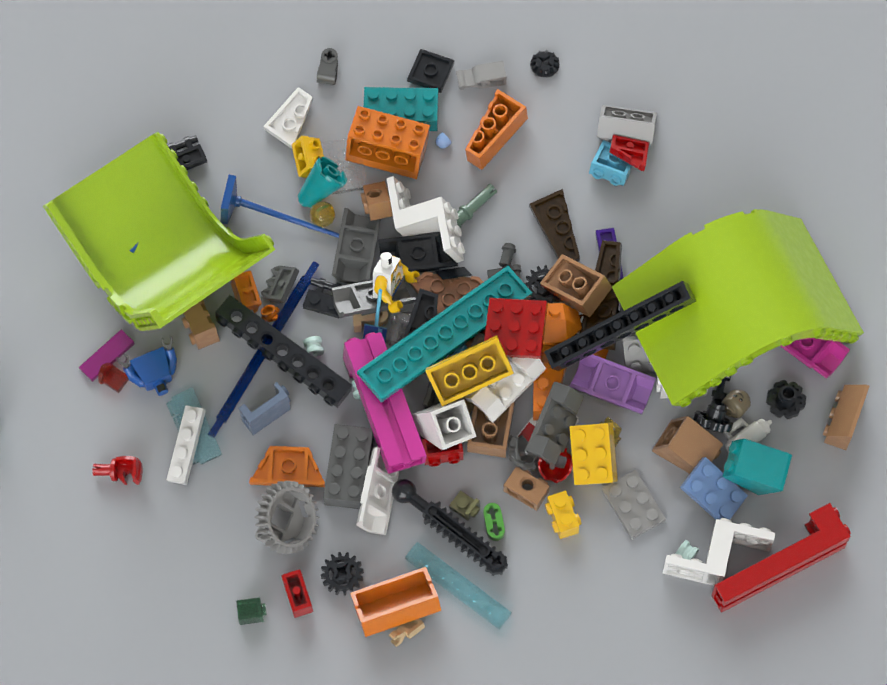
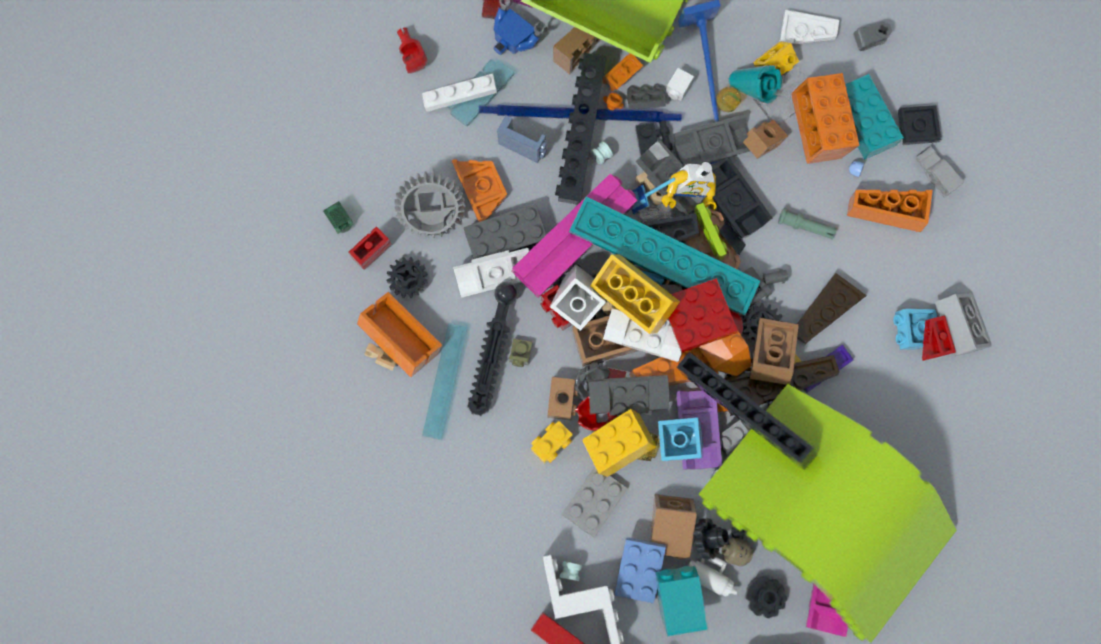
camera: 60 degrees right, 10 degrees up
(285, 249) = (679, 84): none -> white brick
(426, 218) = (770, 188): white bracket -> none
(440, 286) = (710, 231): none -> lime plate
(498, 521) = (520, 388): bright green beam -> none
(546, 70) = (977, 225): black gear -> none
(616, 399) = (680, 439): none -> medium azure brick

